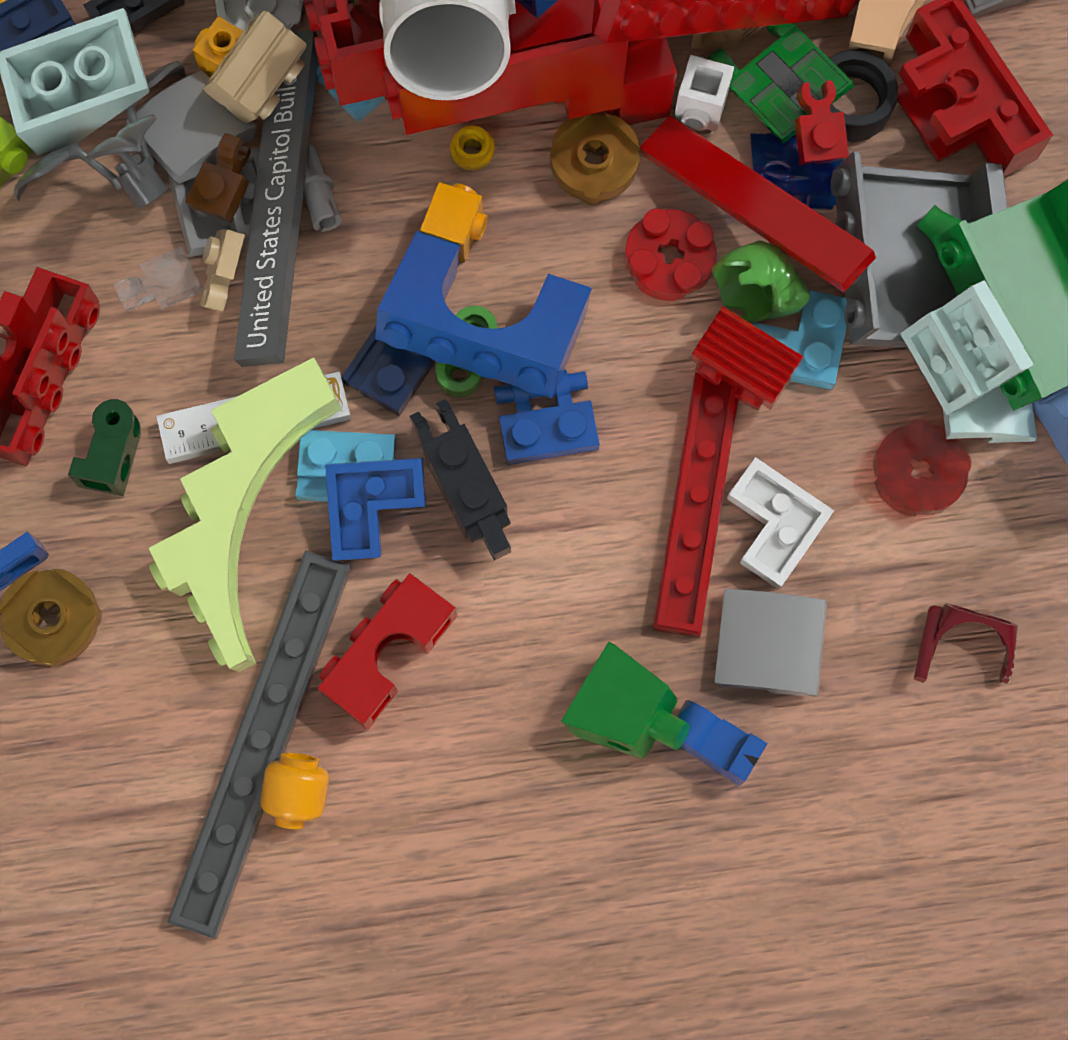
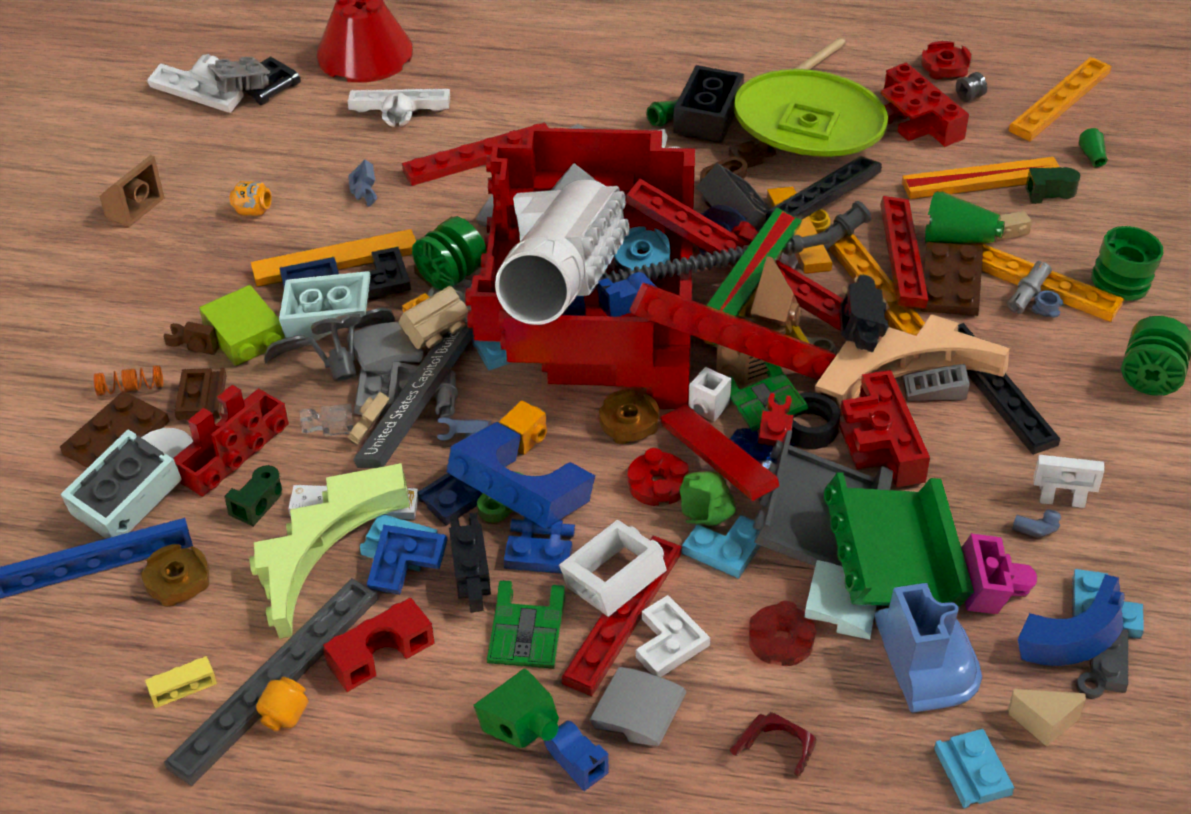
camera: 20 degrees right, 30 degrees down
(133, 789) = (180, 682): none -> light yellow piece
(221, 186) = (389, 375): reddish brown plate -> none
(374, 242) = (466, 426): none -> sand blue plate
(472, 136) = (553, 394): yellow plate -> none
(579, 565) = (526, 632): none -> green flag
(670, 490) = (627, 582): none -> white window
(745, 359) = (680, 534): red brick -> none
(966, 348) = (825, 552): light aqua slope -> none

